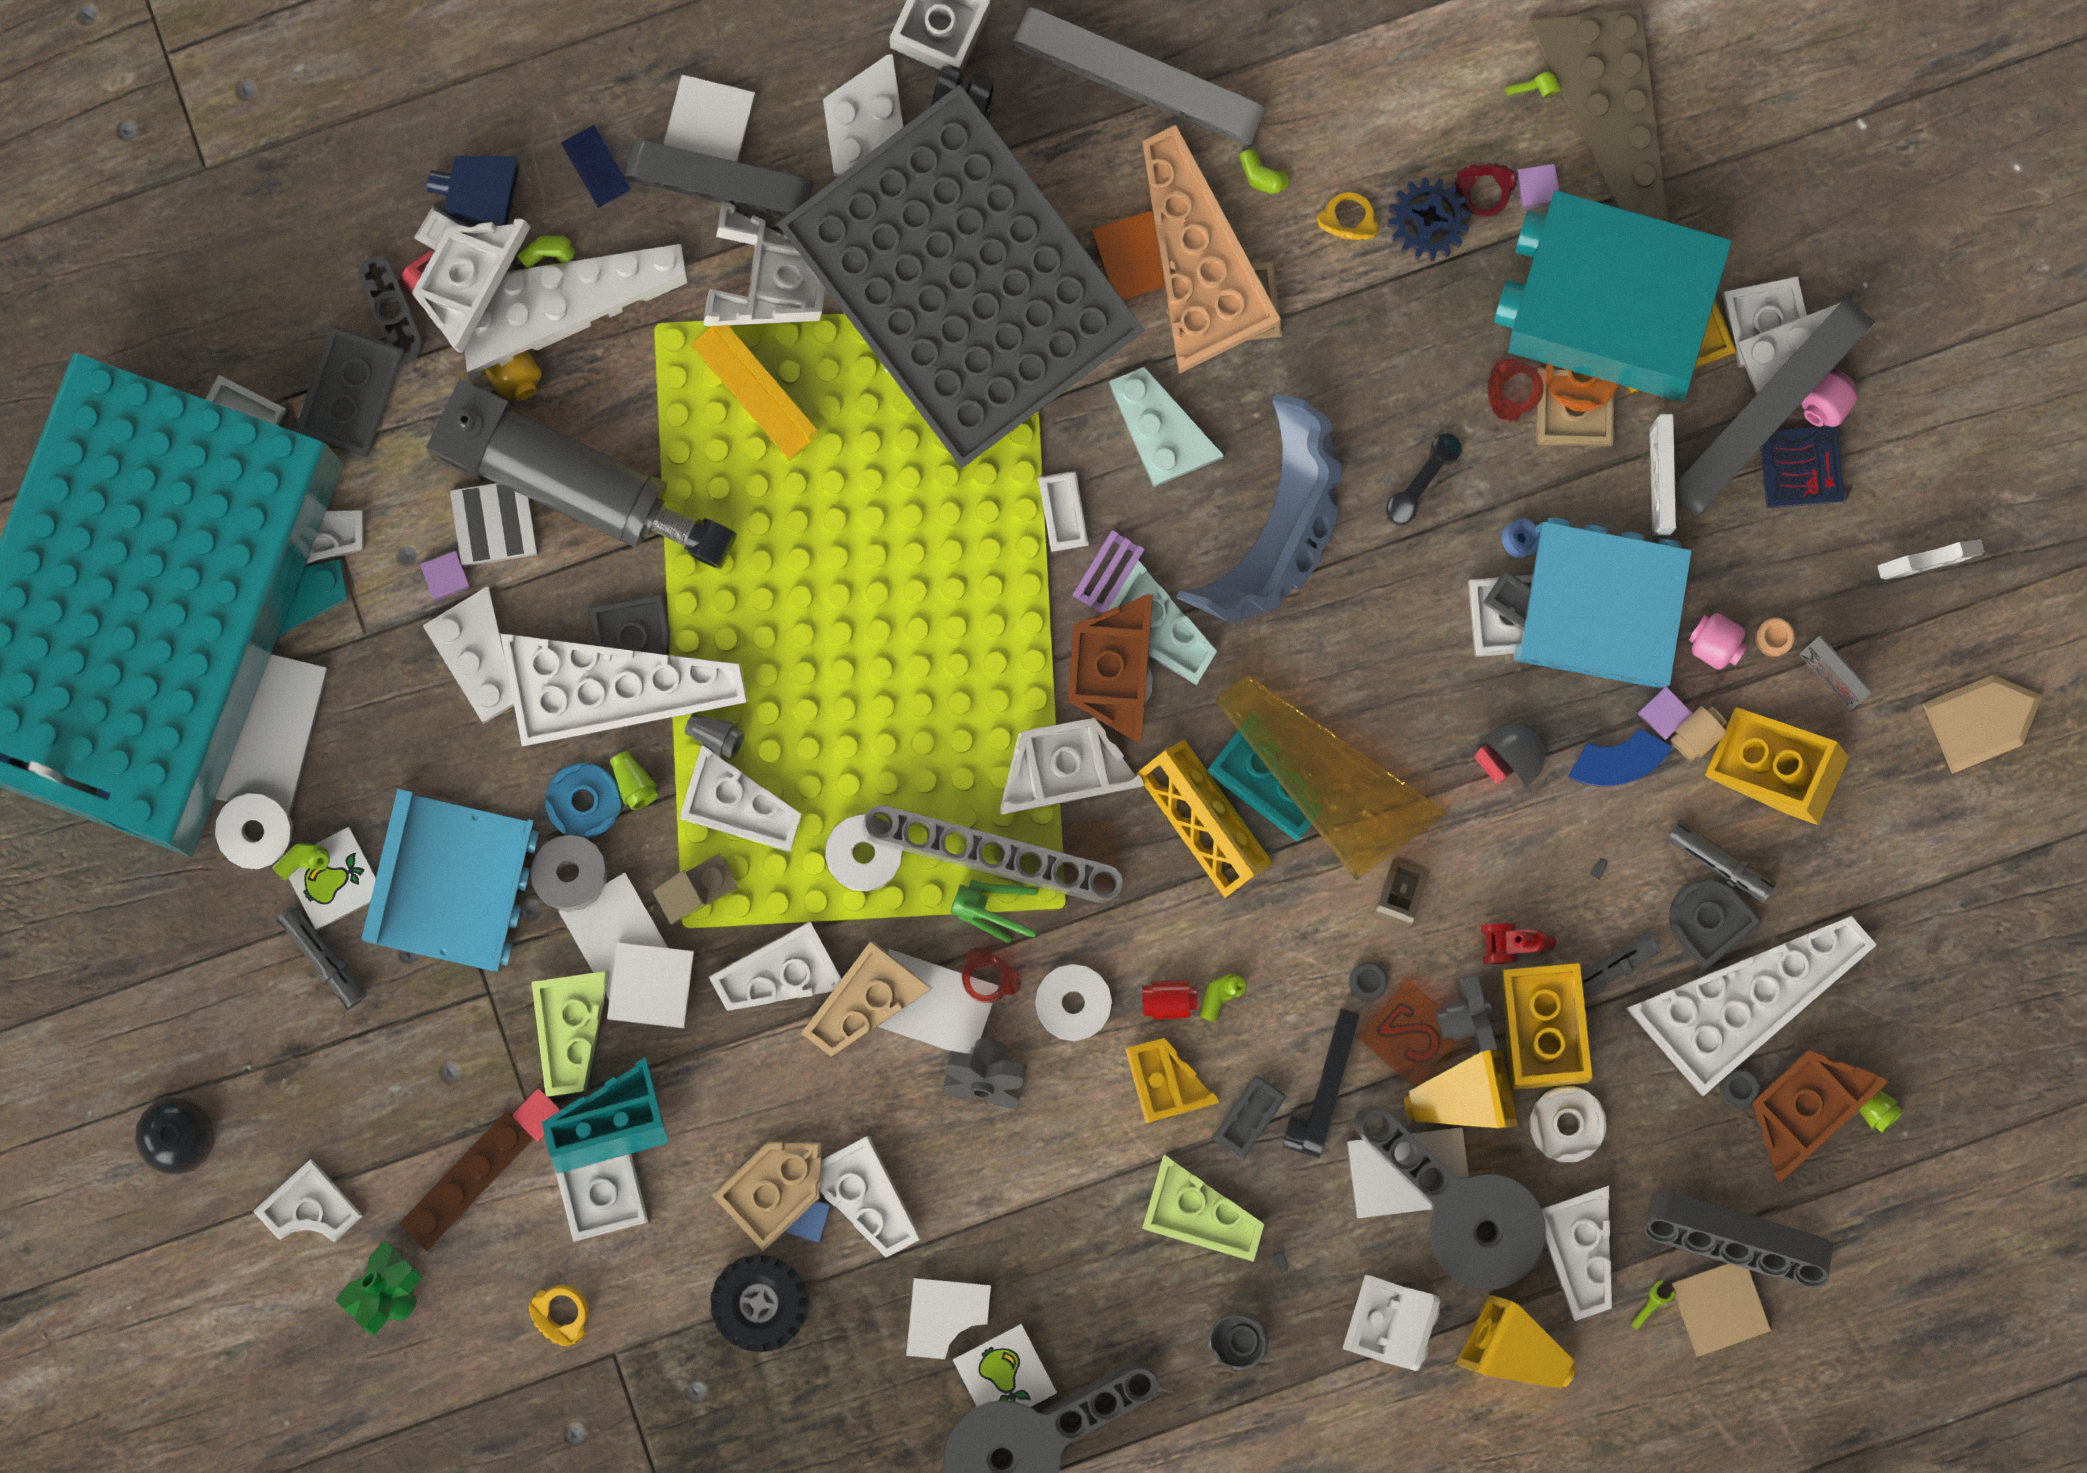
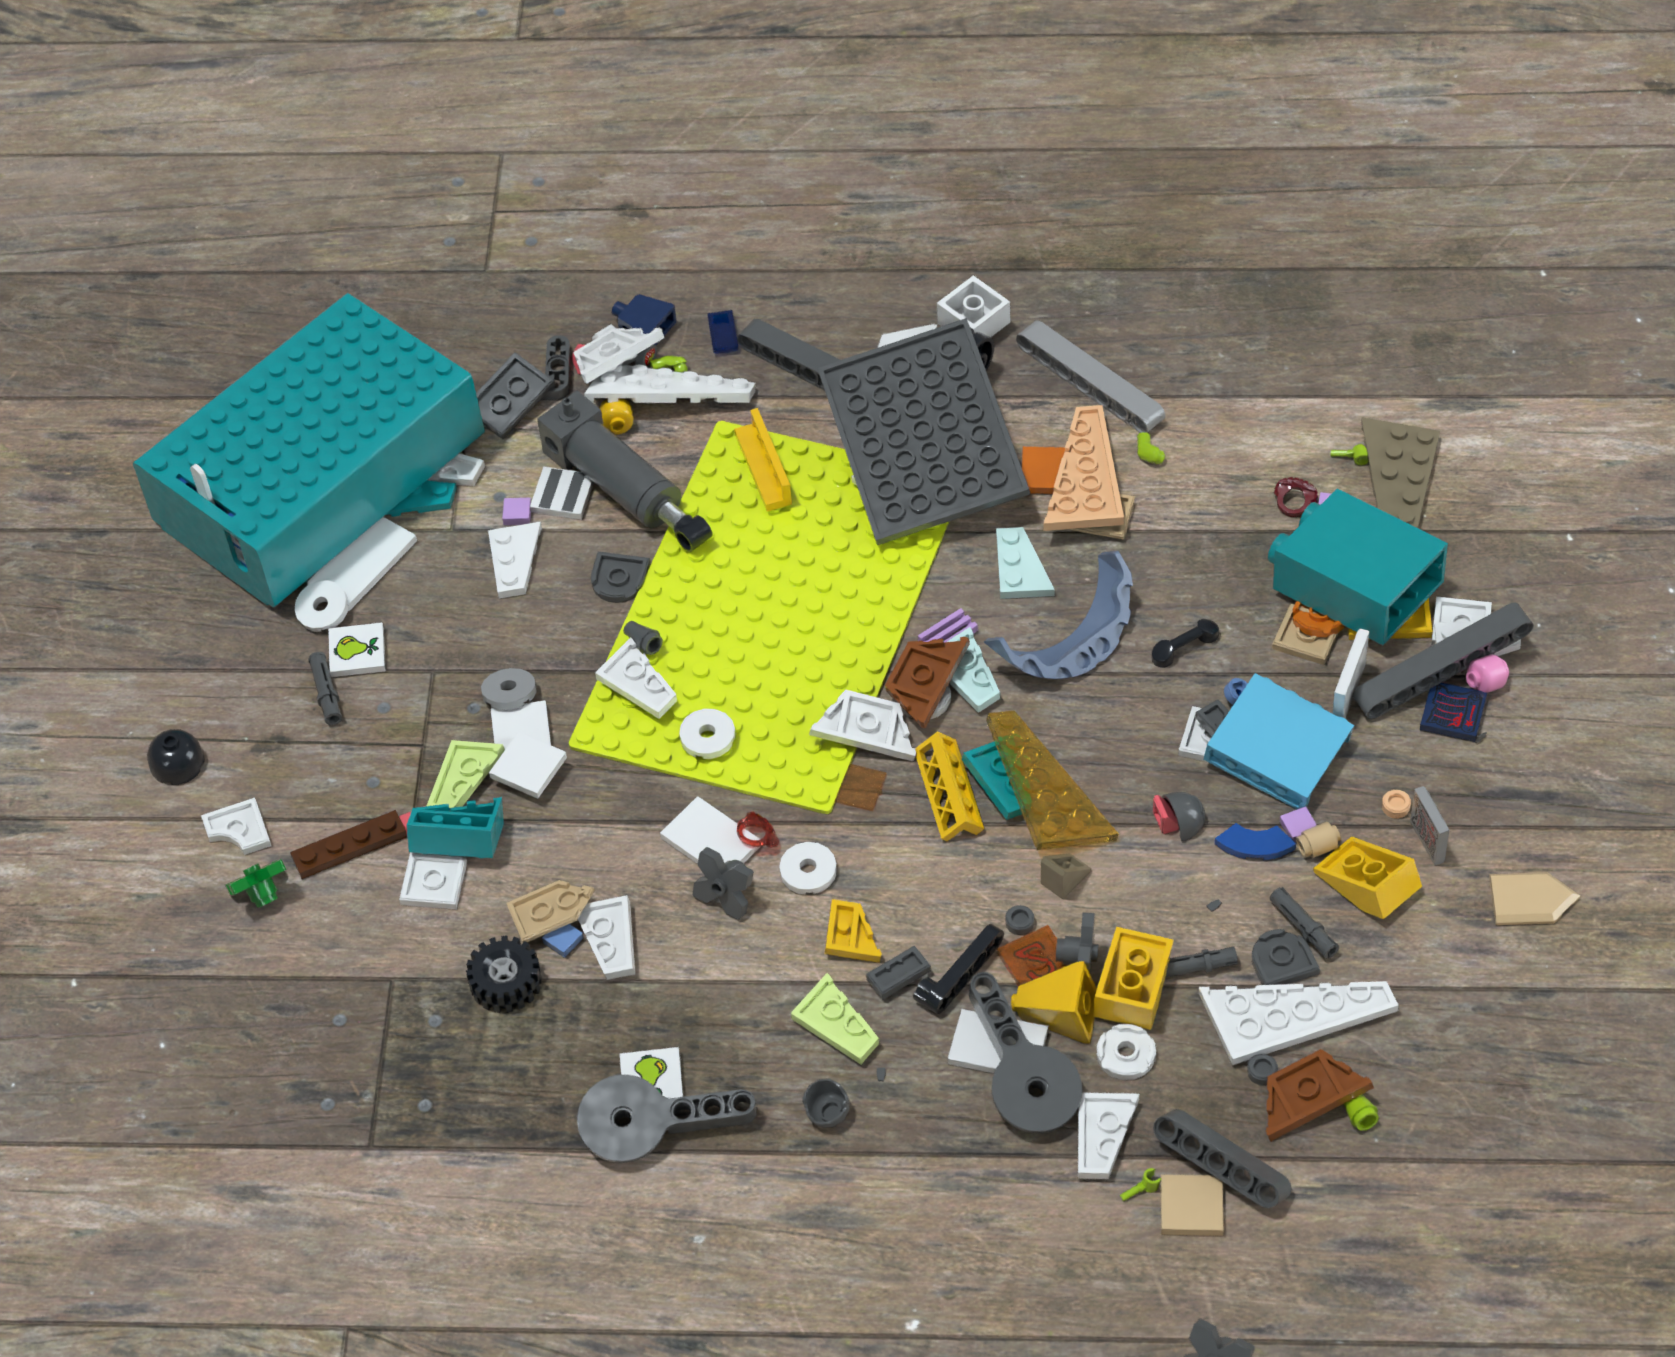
camera: 30 degrees right, 30 degrees down
(304, 856) = (342, 625): lime arm -> none
(449, 882) = (426, 670): medium azure panel -> none
(540, 1309) = (354, 936): yellow piece -> none
(583, 778) = (540, 643): dark azure tile -> none
(589, 689) = (579, 591): white wing -> none
(633, 782) = (577, 653): lime cone -> none
(695, 889) = (585, 720): dark tan slope -> none
(709, 118) = (809, 324): white tile -> none
(779, 971) = (617, 786): white wing -> none
(780, 280) = (803, 411): white wing -> none
(864, 999) = (664, 816): tan wing -> none
(942, 1312) = (626, 1025): white tile -> none
(971, 905) = (766, 782): bright green plant -> none
(1010, 849) = (800, 763): light grey beam -> none
(1063, 511) = (933, 590): white tile -> none
(1169, 999) = (874, 882): red brick -> none
(1220, 991) = (910, 893): lime arm -> none
(1366, 229) = (1205, 496): yellow piece -> none
(1392, 1323) = (938, 1127): white bracket -> none
(1442, 223) = (1248, 500): dark blue gear -> none
(1503, 407) = (1262, 599): clear red piece -> none
(1506, 942) = (1133, 917): red piece -> none
(1514, 1347) = (1026, 1174): yellow slope -> none
(1718, 641) = (1353, 789): bright pink head -> none
(1931, 559) = (1514, 783): white tile -> none

